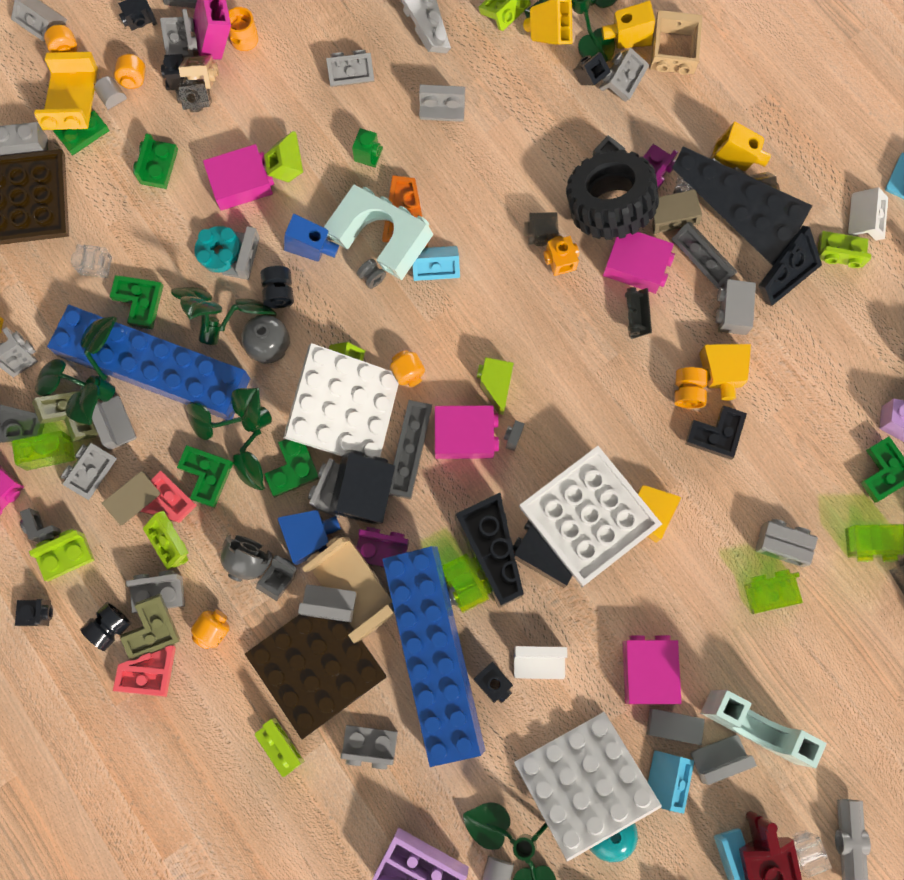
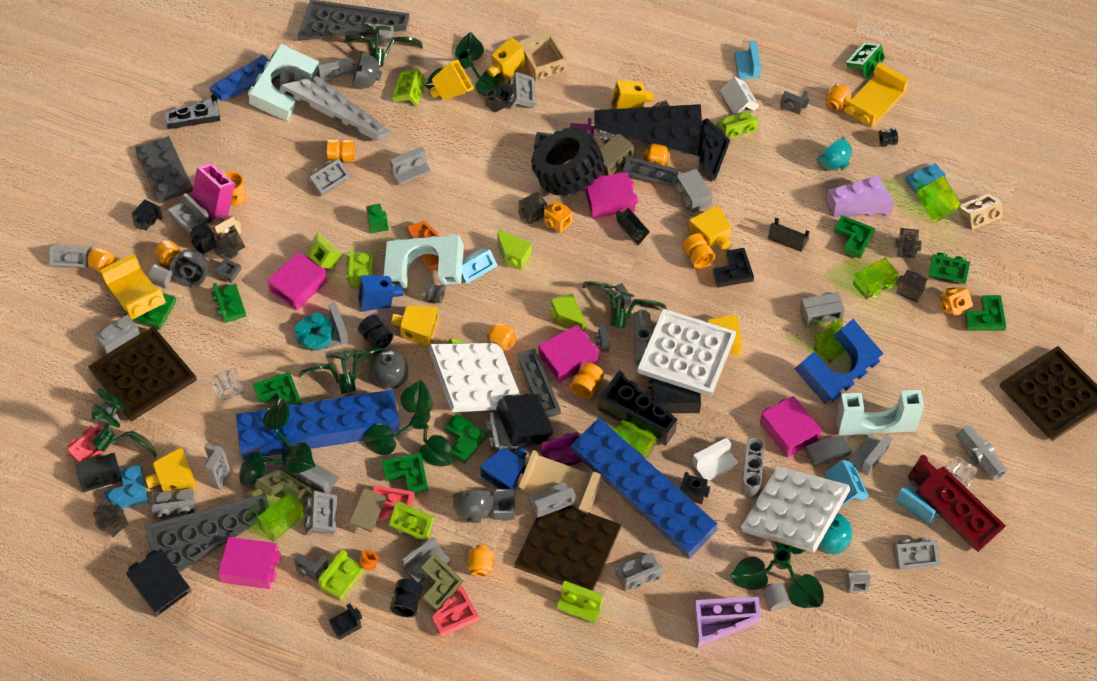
camera: 30 degrees left, 20 degrees down
(102, 548) = (368, 560): none -> orange bush
(139, 99) = (189, 268): none -> dark grey cylinder
(178, 124) = (228, 270): none -> dark grey plate
(313, 197) = (359, 265): none -> lime bracket
(329, 301) = (417, 323): none -> yellow torso
(379, 42) = (341, 150): none -> light orange wheel
(465, 477) = (587, 380): none -> light orange wheel
(488, 270) = (514, 250): none -> lime slope
(552, 409) = (618, 314): none -> dark green plant
(565, 448) = (642, 328): none -> light grey piece
(568, 395) = (625, 300): none -> dark grey plate
(587, 692) = (753, 475): none -> light grey beam
(724, 238) = (657, 154): none -> light orange head
(794, 633) = (862, 353): none -> blue arch
(809, 426) = (788, 236): none -> pearl dark grey hinge

